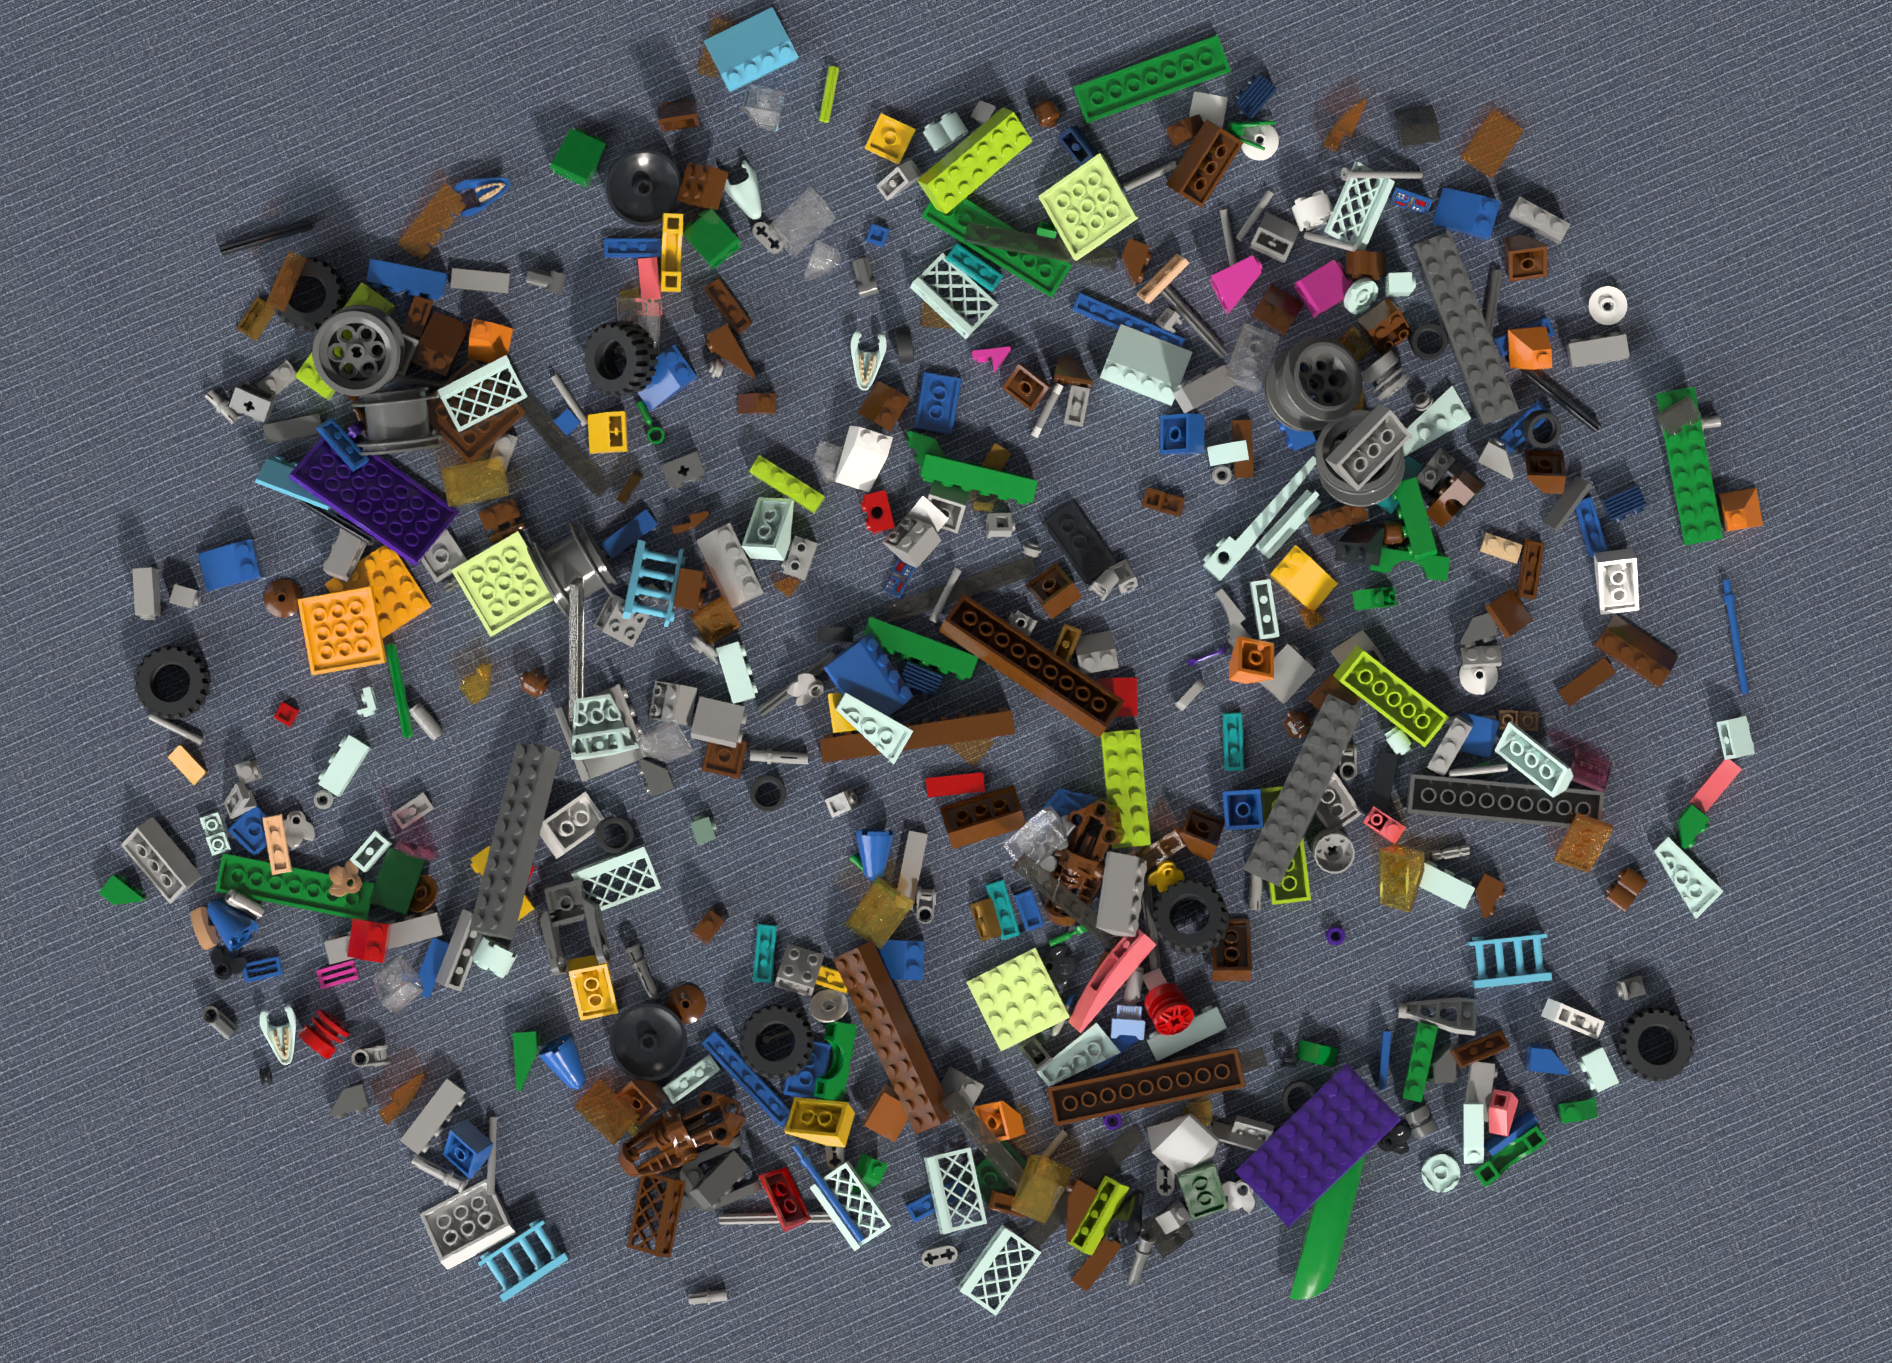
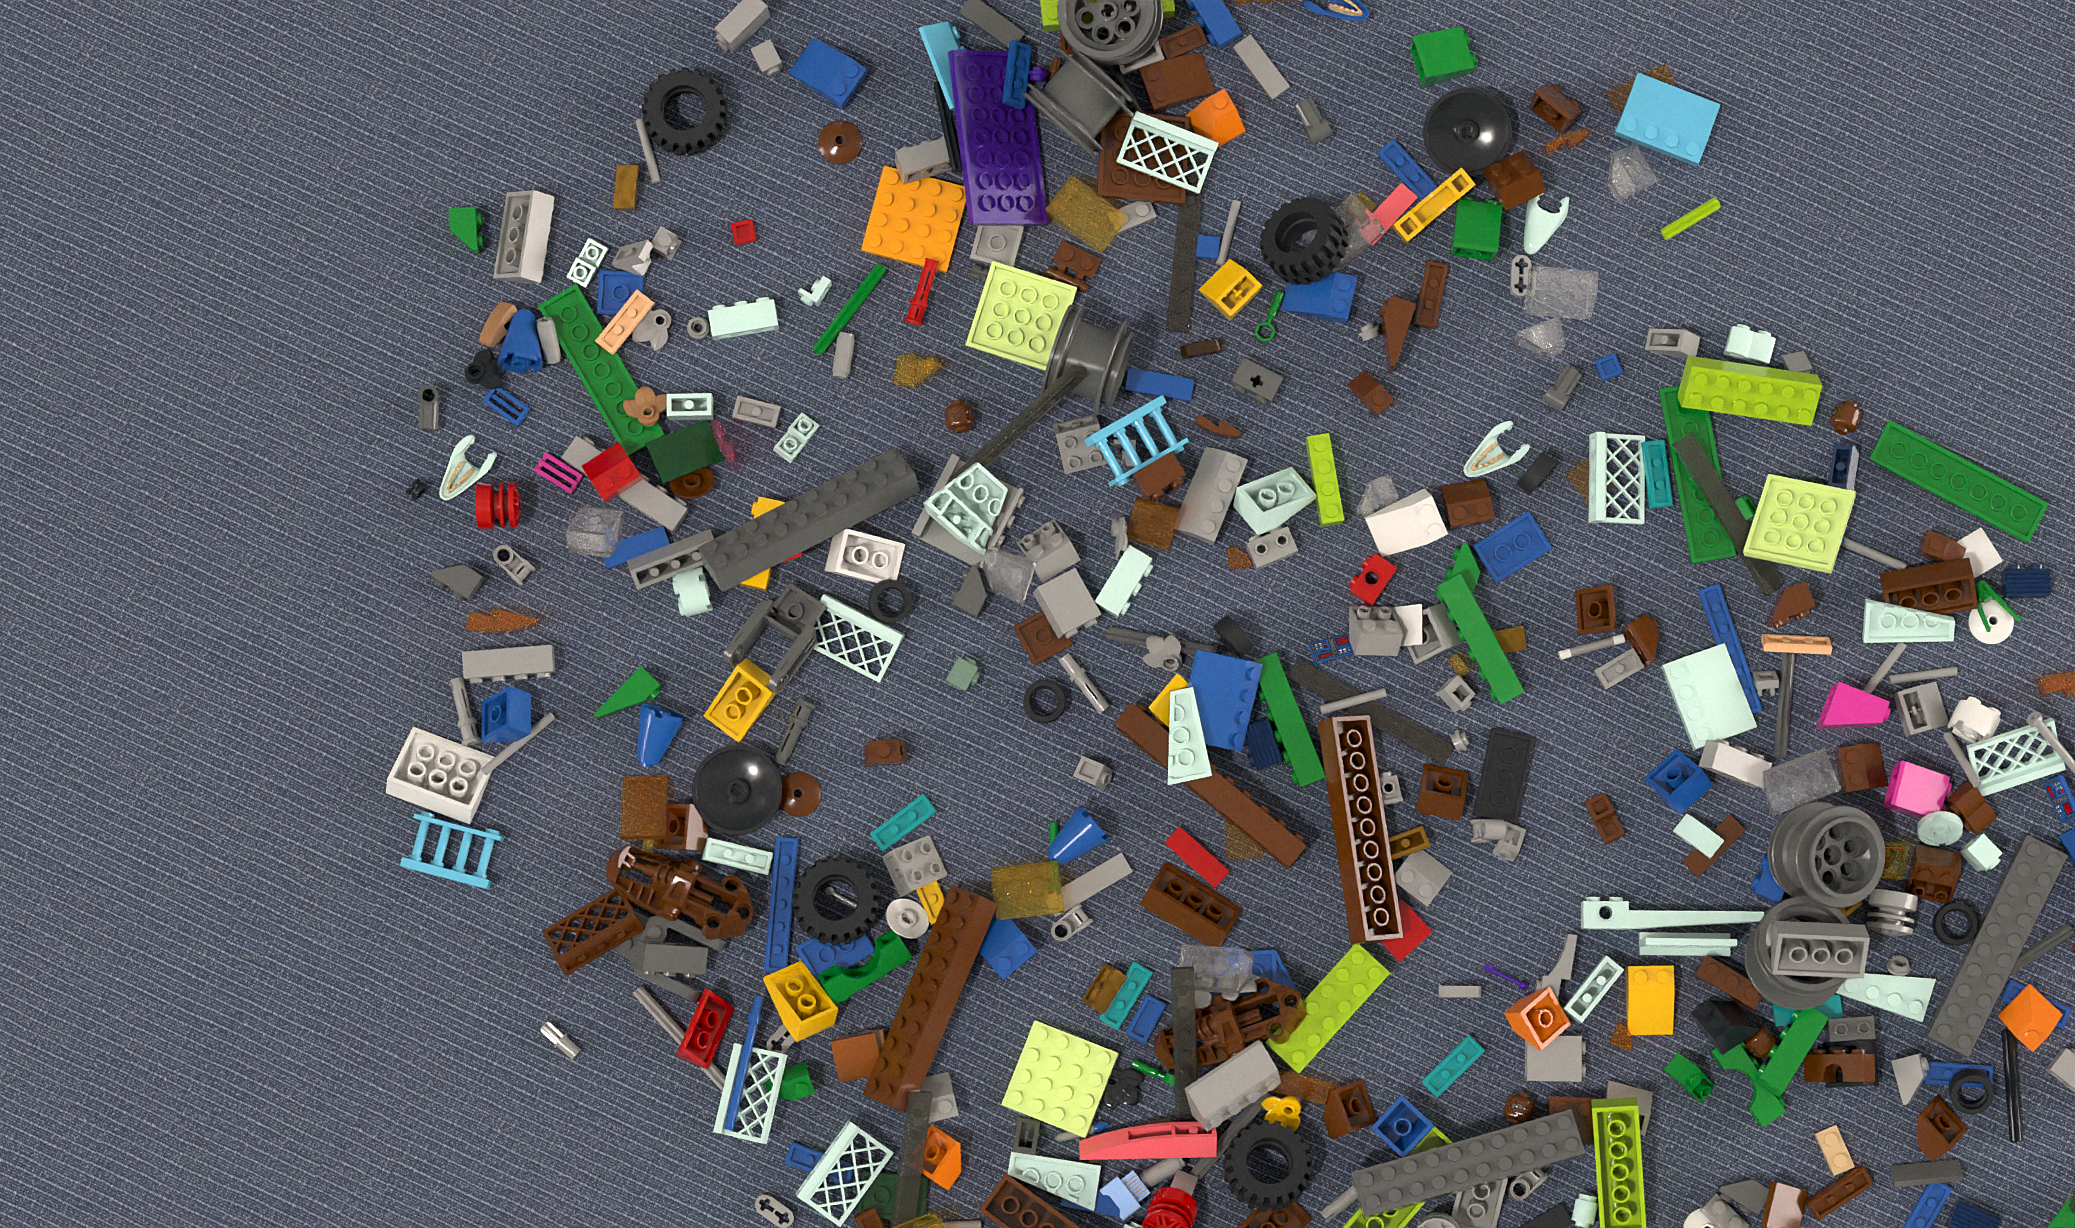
camera: 50 degrees right, 5 degrees down
(342, 630) = (857, 214): light orange plate -> none
(438, 641) = (931, 266): none -> red pin
(452, 800) = (796, 437): none -> light aqua slope
(708, 124) = (1570, 139): none -> clear orange slope
(890, 139) = (1700, 304): yellow plate -> none
(997, 354) = (1600, 562): dark pink slope -> none
(1207, 202) = (1901, 624): none -> light aqua wing
(1226, 470) = (1681, 847): light grey plate -> none

